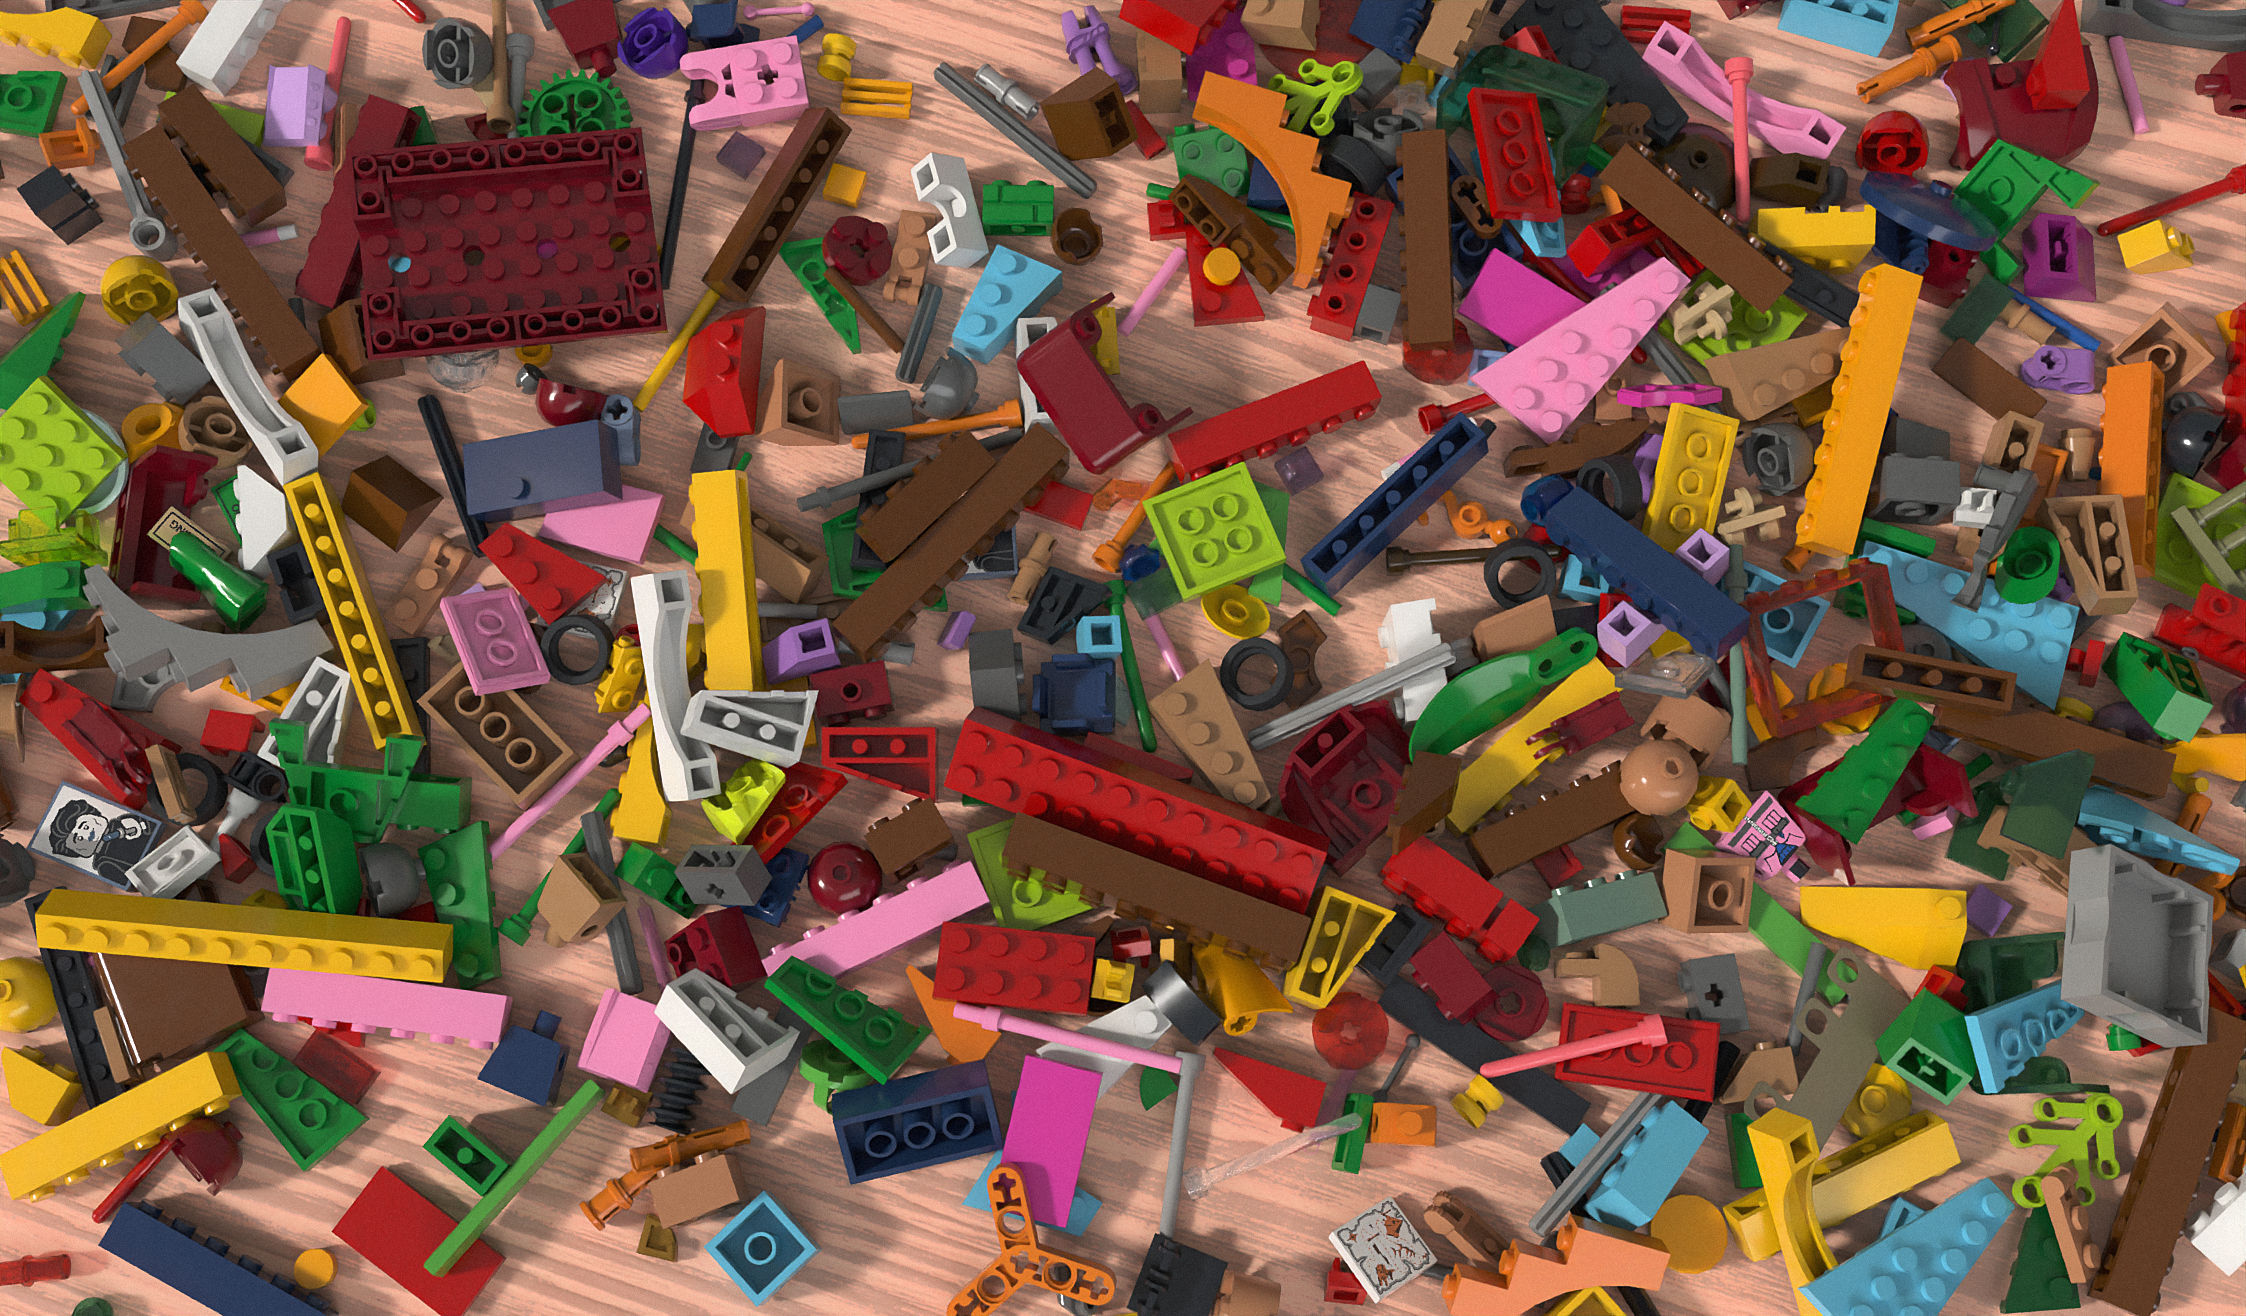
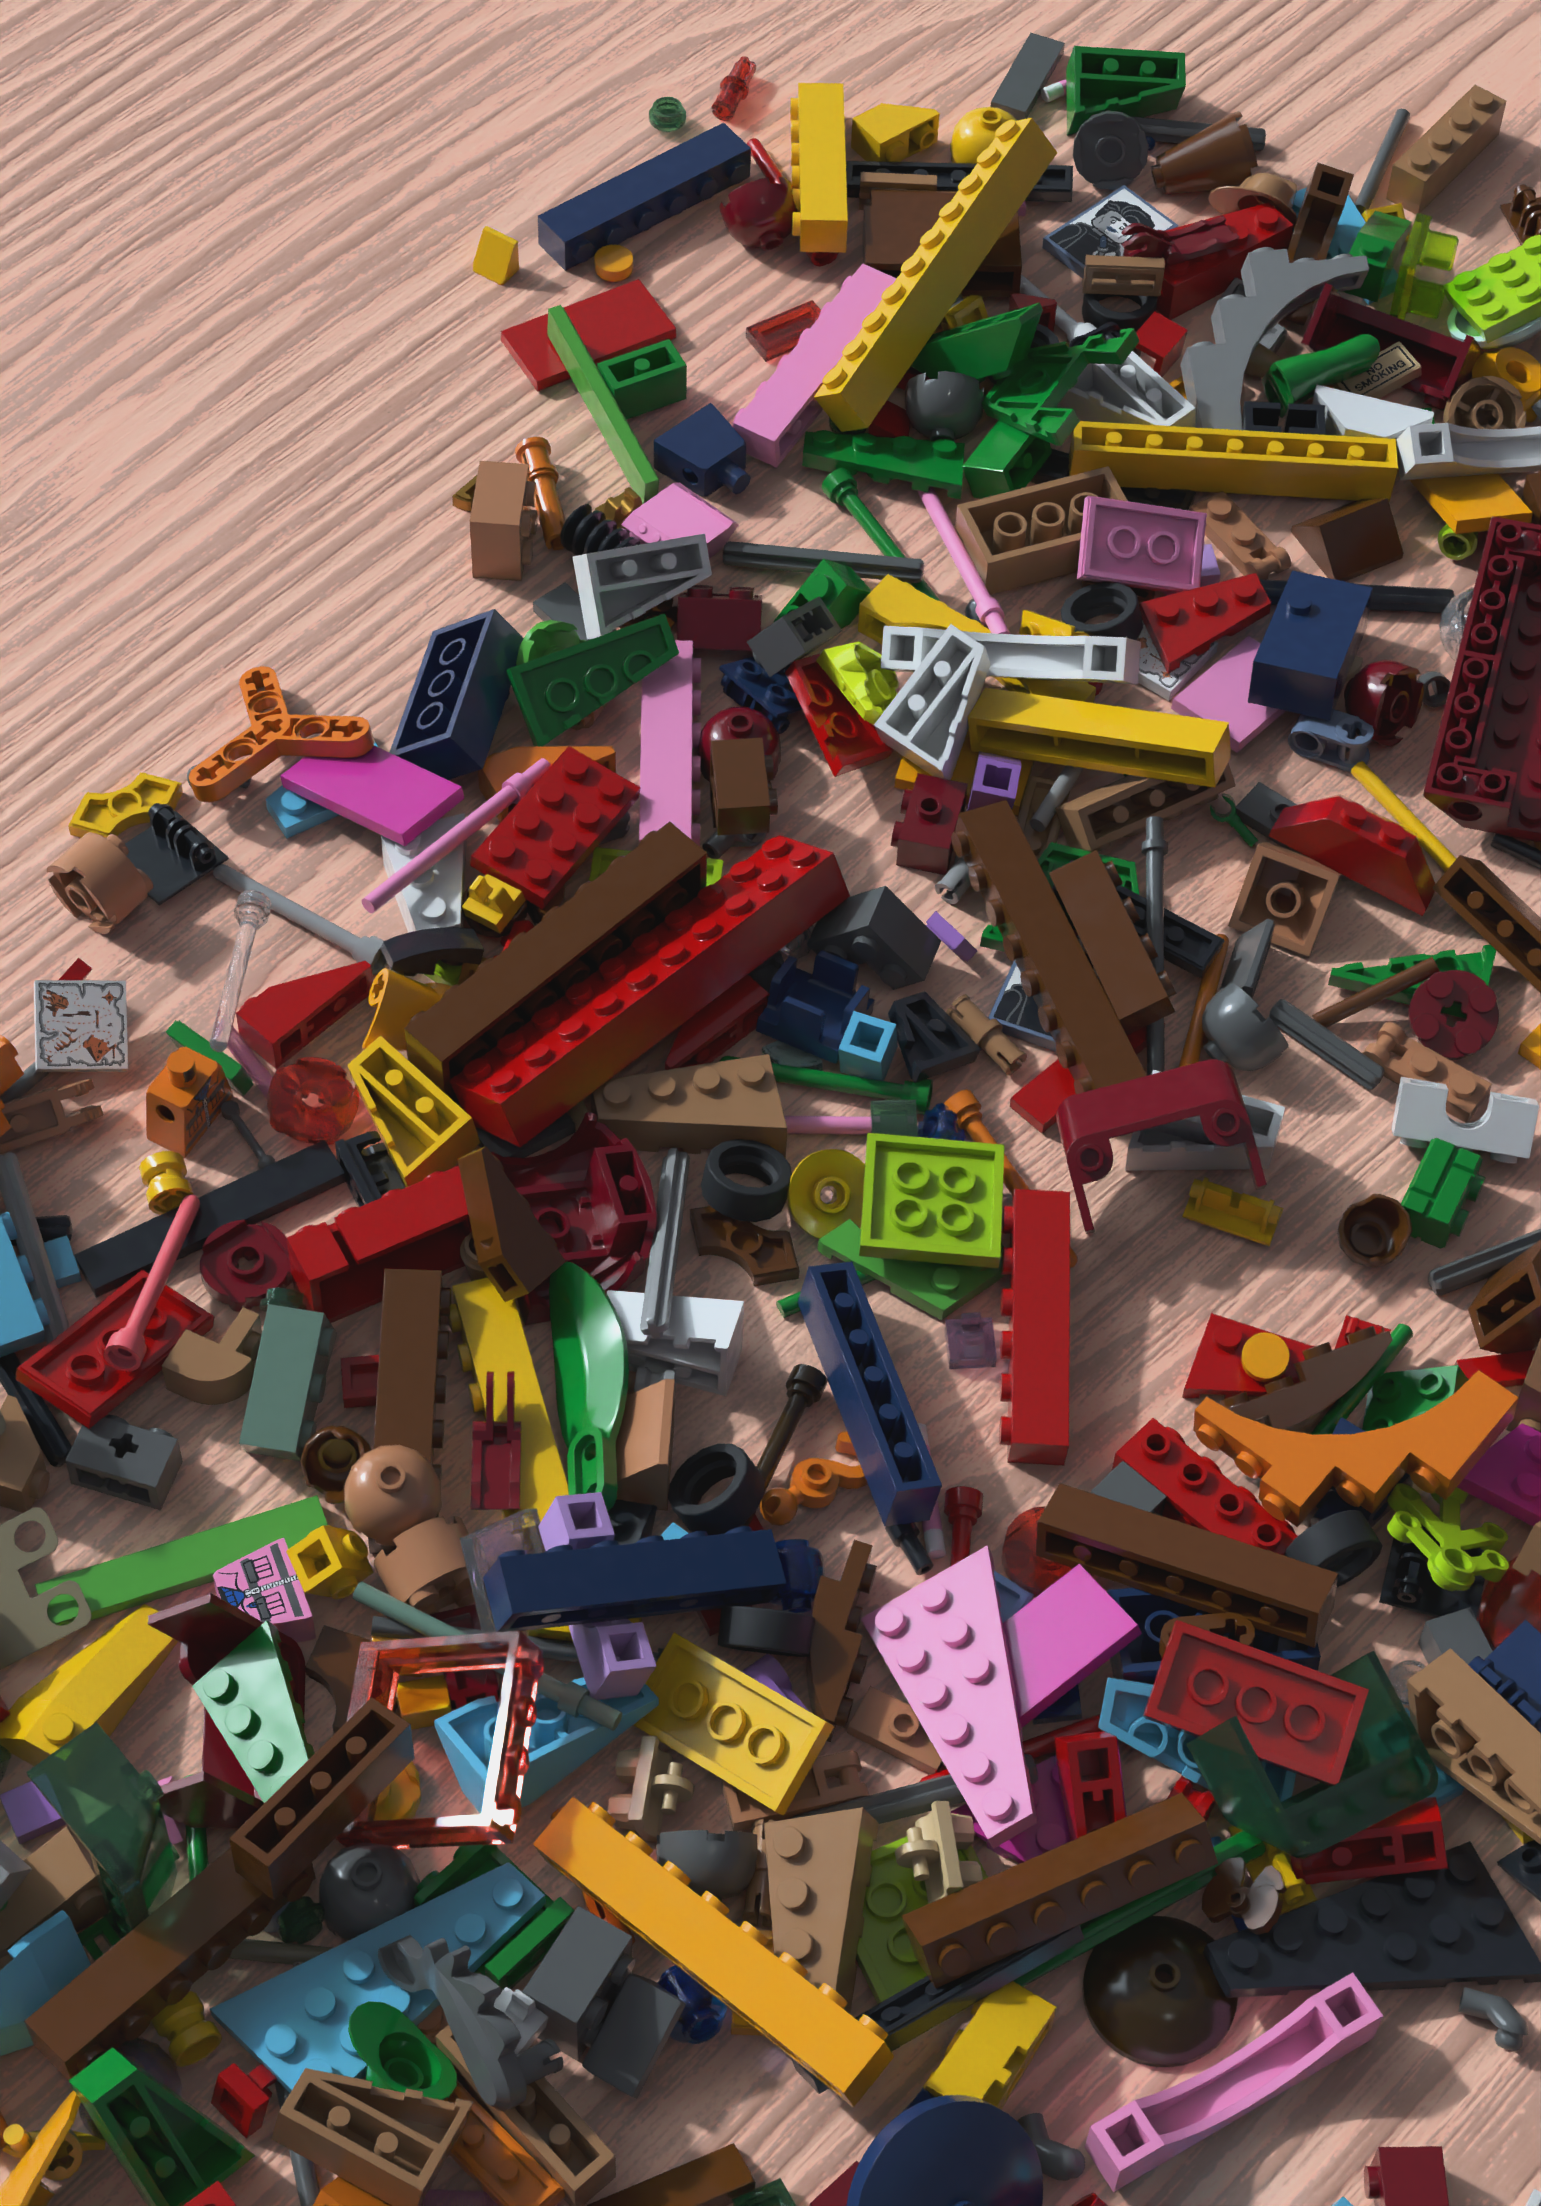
camera: 115 degrees right, 20 degrees down
(173, 865) = (1044, 262): white tile -> none
(290, 1102) = (770, 287): green wing -> none
(578, 900) = (830, 530): medium nougat torso -> none
(660, 981) = (787, 585): bright pink piece -> none
(679, 1149) = (550, 515): orange pin -> none
(763, 1248) = (419, 552): medium azure brick -> none
(887, 756) = (849, 811): red wedge -> none
(1007, 290) = (1325, 1126): medium azure wedge -> none
(1114, 491) = (1037, 1147): clear orange arm -> none
(1151, 291) = (1272, 1291): bright pink bar -> none
(1155, 1086) = (372, 924): green tile -> none
(1384, 130) = (1367, 1613): dark grey cylinder -> none
(1453, 978) = (294, 1200): dark red brick -> none
(1651, 19) = (1415, 2015): red tile -> none
(1656, 395) = (846, 1765): dark pink tile -> none
(1707, 890) = (238, 1497): nougat slope -> none
(1738, 72) = (1265, 2088): coral piece -> none
(1788, 179) = (1083, 2083): dark brown slope -> none
(1806, 991) = (69, 1557): dark grey bar -> none

